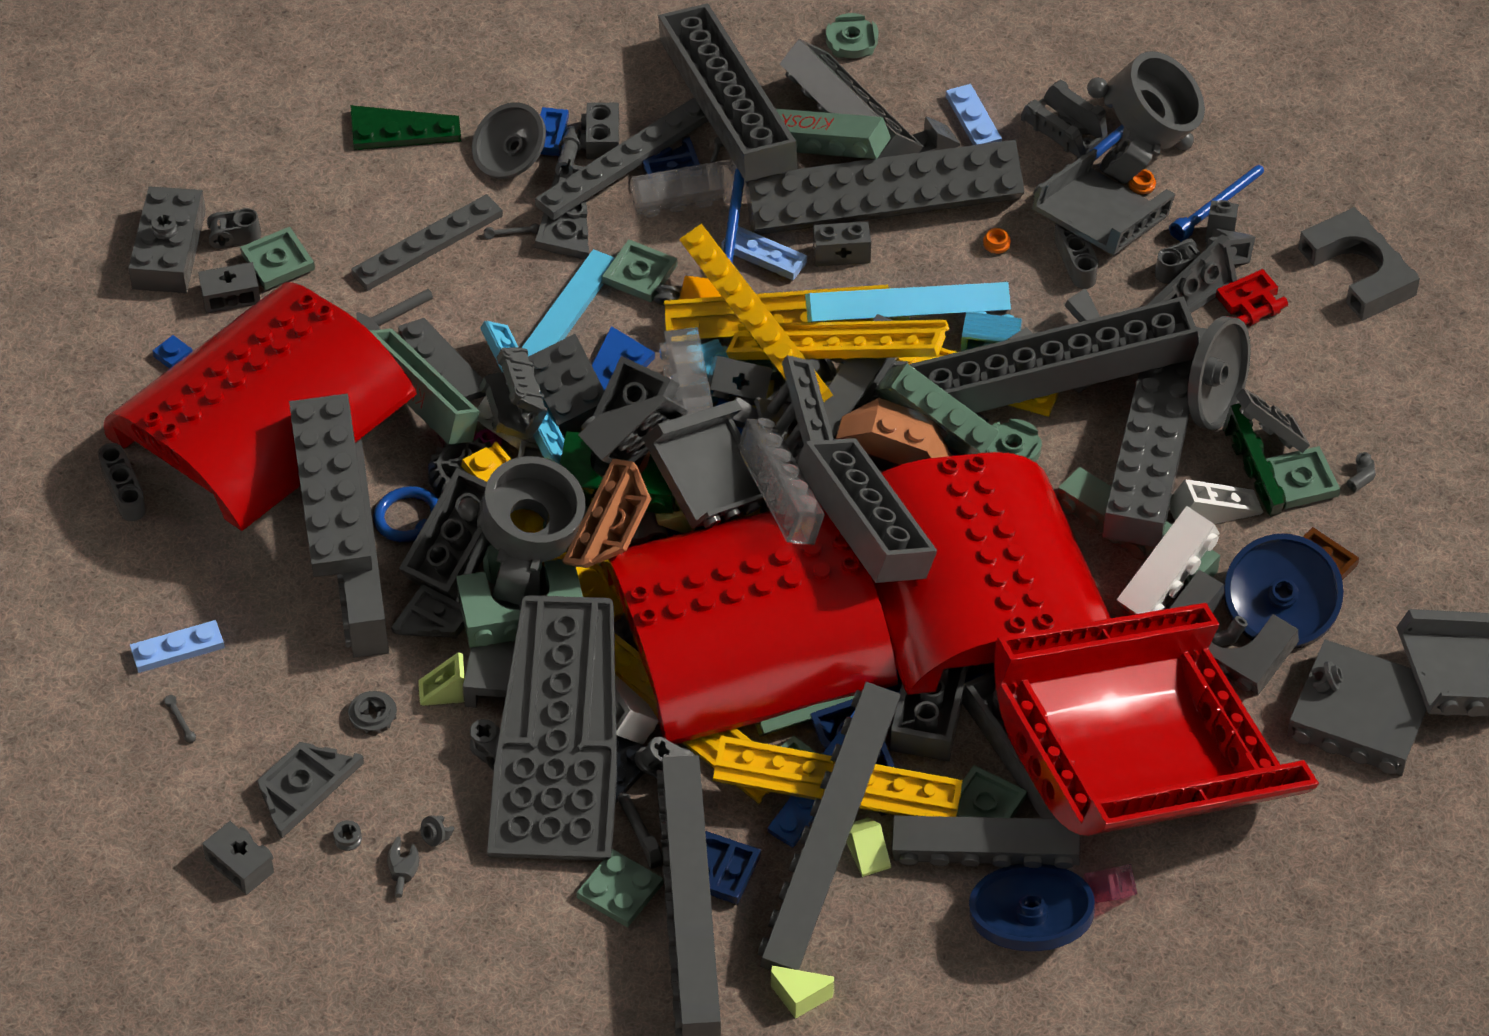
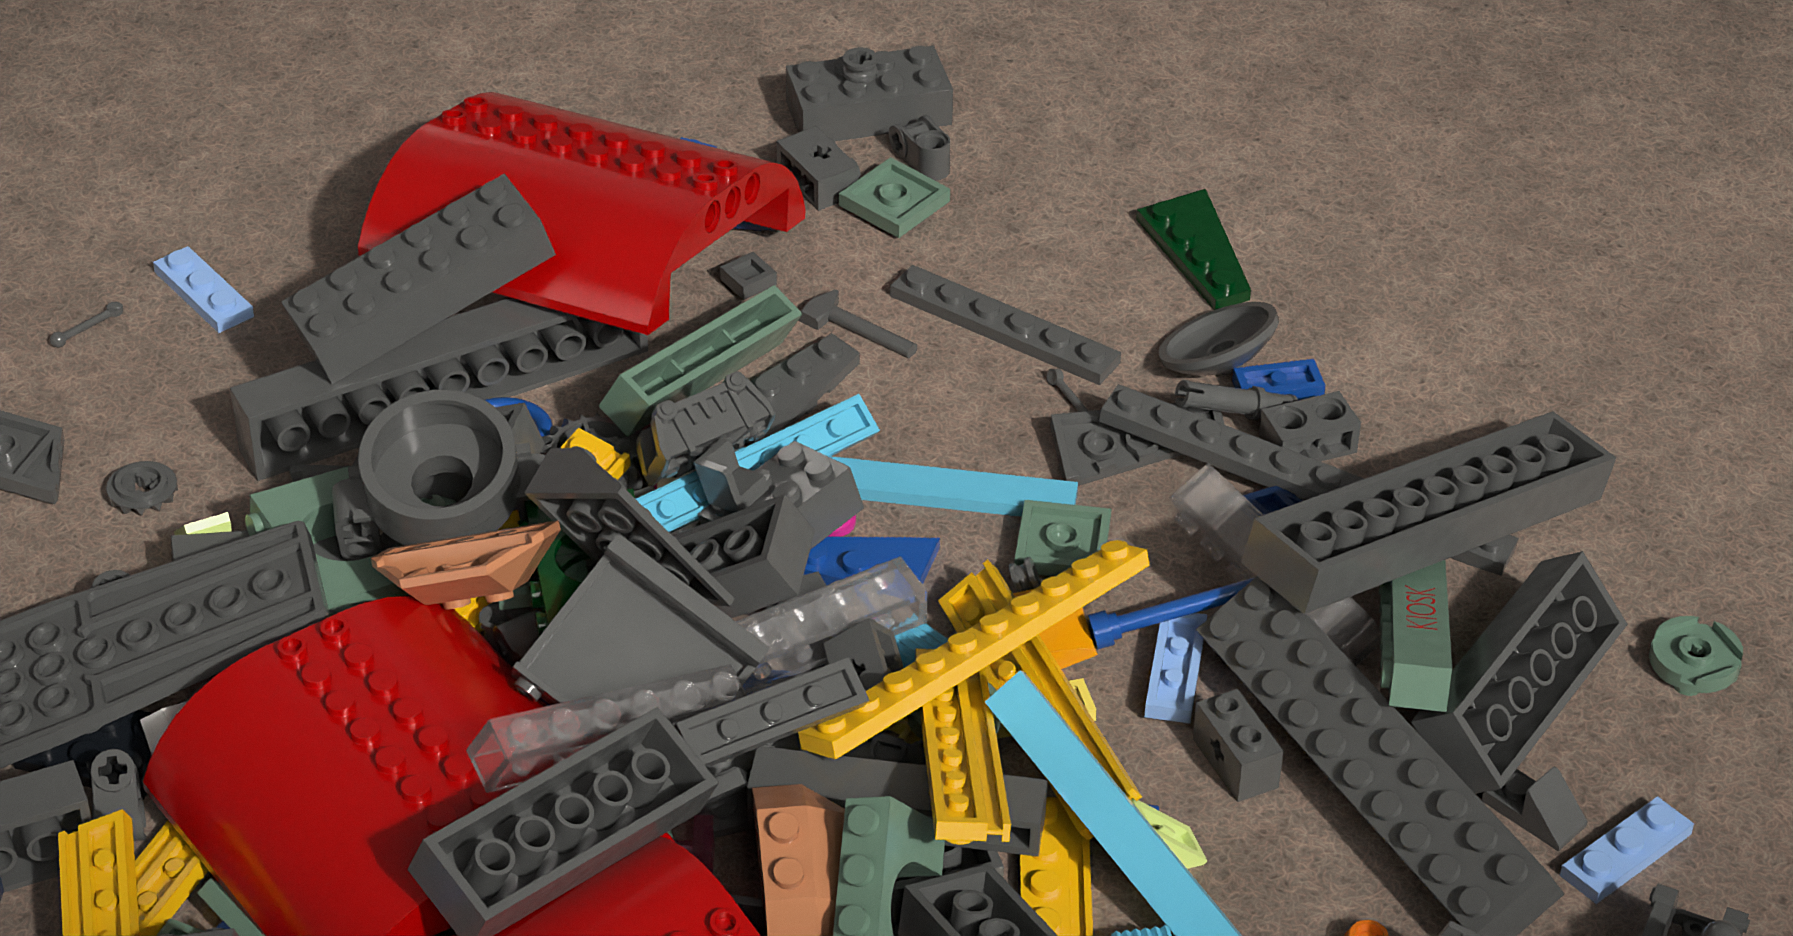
camera: 70 degrees right, 10 degrees down
(562, 393) = (725, 481): none -> dark grey panel

